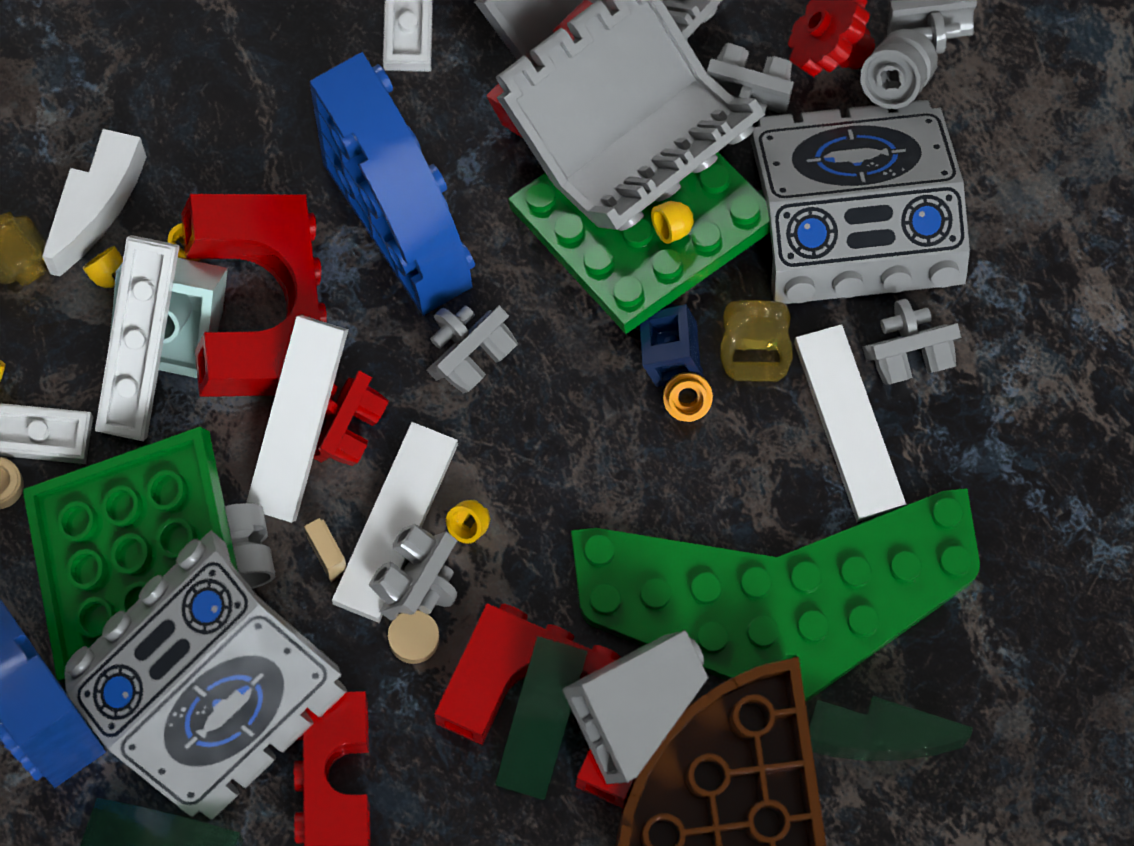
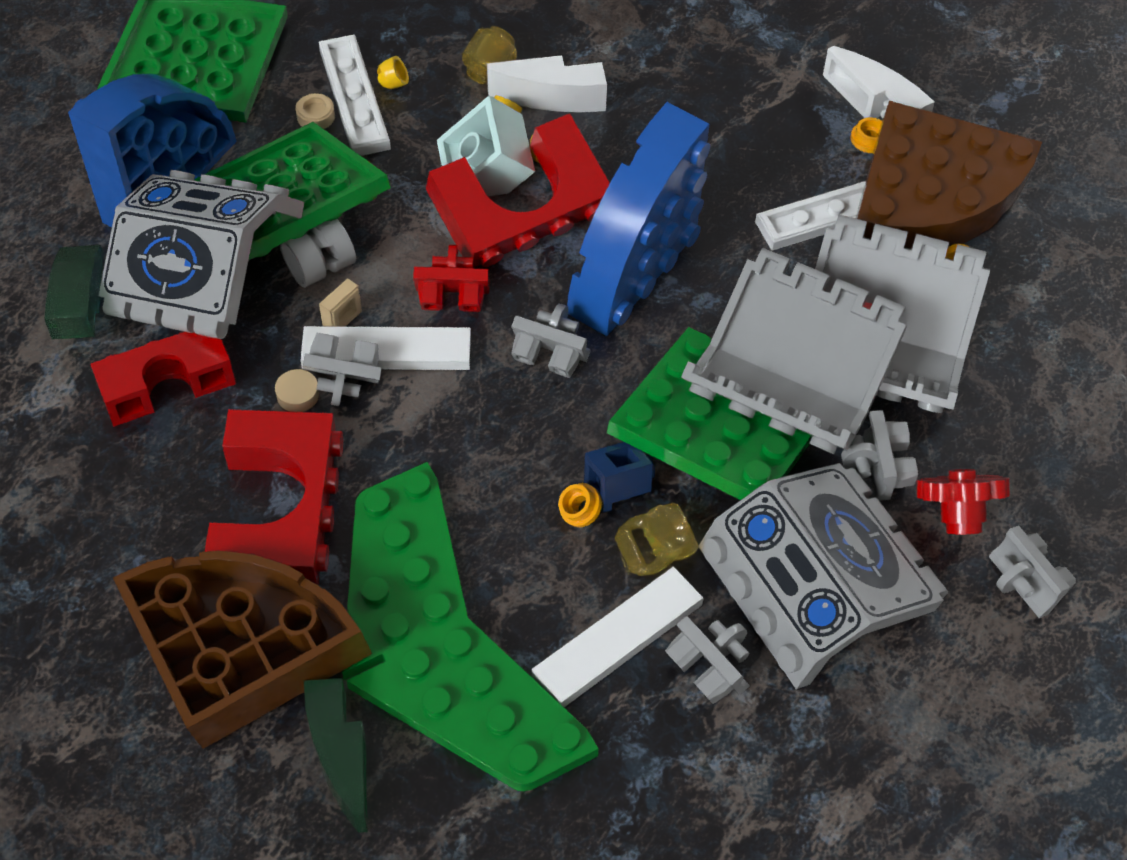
camera: 70 degrees right, 15 degrees down
(137, 337) = (450, 131): white tile -> none
(297, 417) = (431, 242): white tile -> none
(460, 514) = (406, 391): yellow hinge -> none
(540, 718) = (257, 483): clear green slope -> none
(636, 702) = (277, 524): light grey slope -> none
(672, 221) = (713, 417): yellow hinge -> none
(899, 69) = (959, 553): light grey wheel -> none

